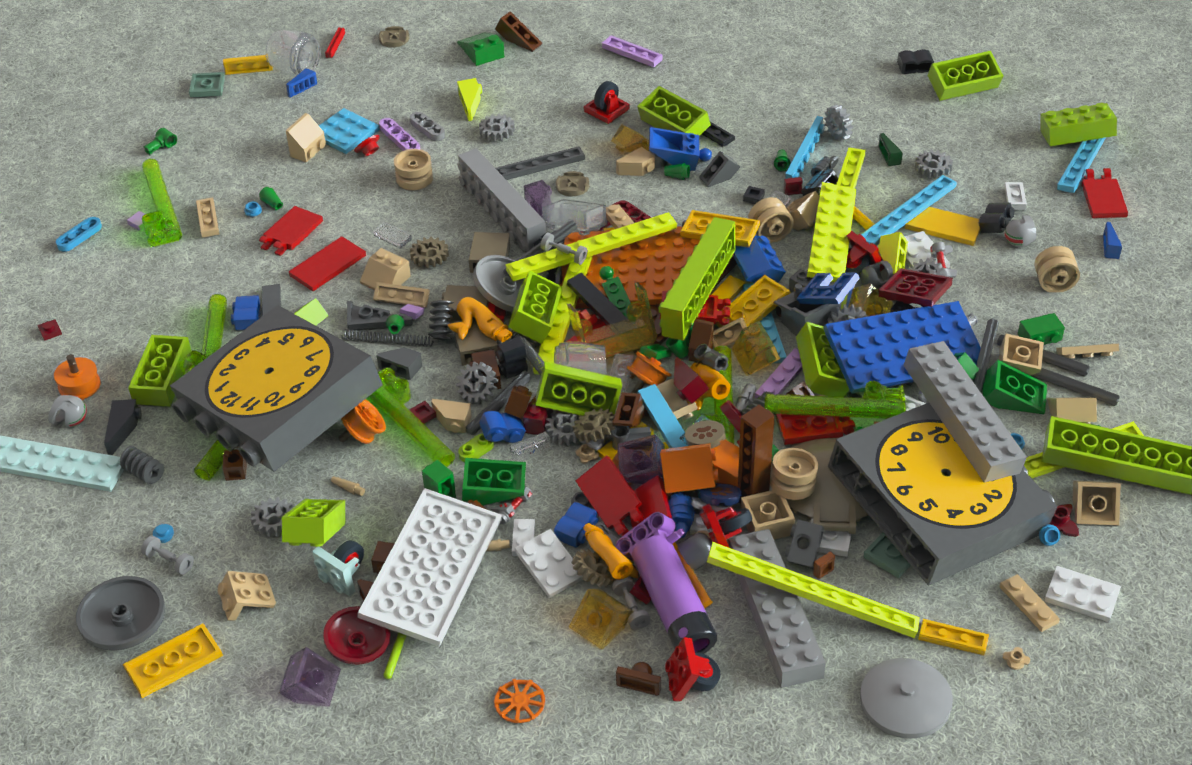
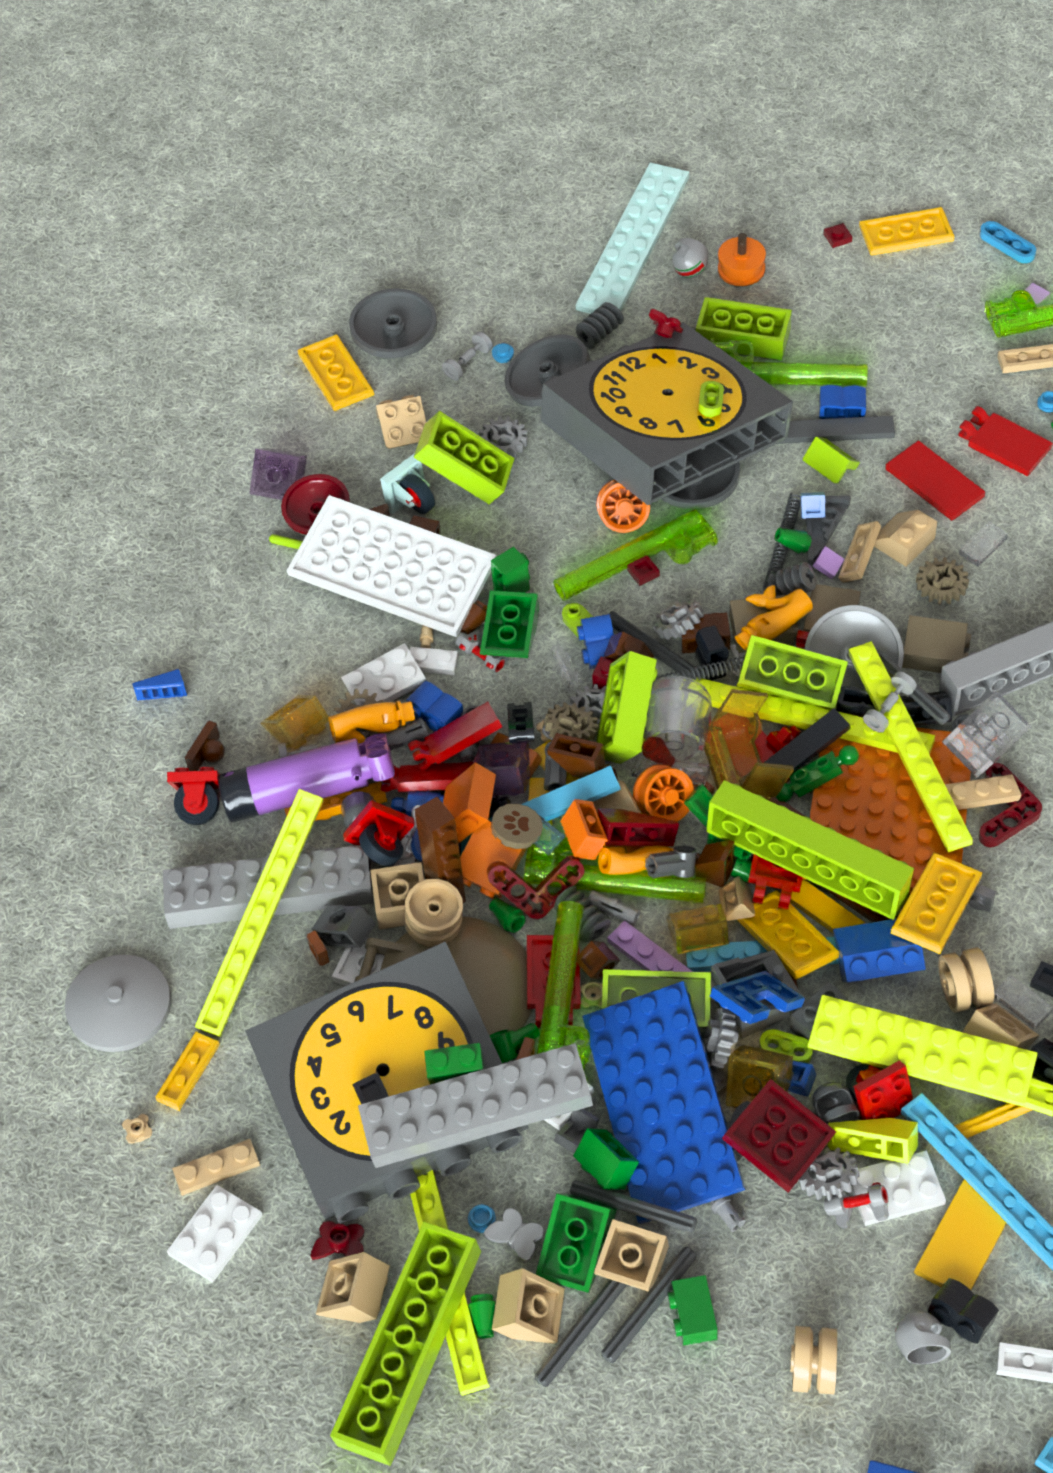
camera: 100 degrees right, 10 degrees up
(52, 291) = (906, 231): none -> yellow tile
(121, 422) = (671, 302): black slope -> none
(187, 382) = (664, 325): none -> dark red animal
(198, 489) = (540, 362): none -> dark grey dish
(284, 338) = (711, 398): none -> lime plate
(352, 487) = (539, 507): tan animal -> none
(362, 314) = (812, 505): none -> tile
(402, 360) = (730, 550): dark grey slope -> none
(452, 415) = (631, 596): tan slope -> none
(519, 700) = (210, 645): orange wheel -> none
(537, 195) = (1027, 694): clear purple slope -> none
(572, 722) = (160, 686): none -> blue slope
(584, 461) = (520, 722): none -> black plate
(616, 367) = (657, 751): none -> clear red cone
(698, 400) = (584, 829): none -> orange brick
(937, 421) = (453, 1062): none -> green brick
(969, 472) = (370, 1089): none -> black plate
(1022, 419) = (516, 1233): none -> light grey animal
(1049, 534) = (309, 1215): dark azure plate -> none
(1088, 351) = (646, 1366): tan plate -> none

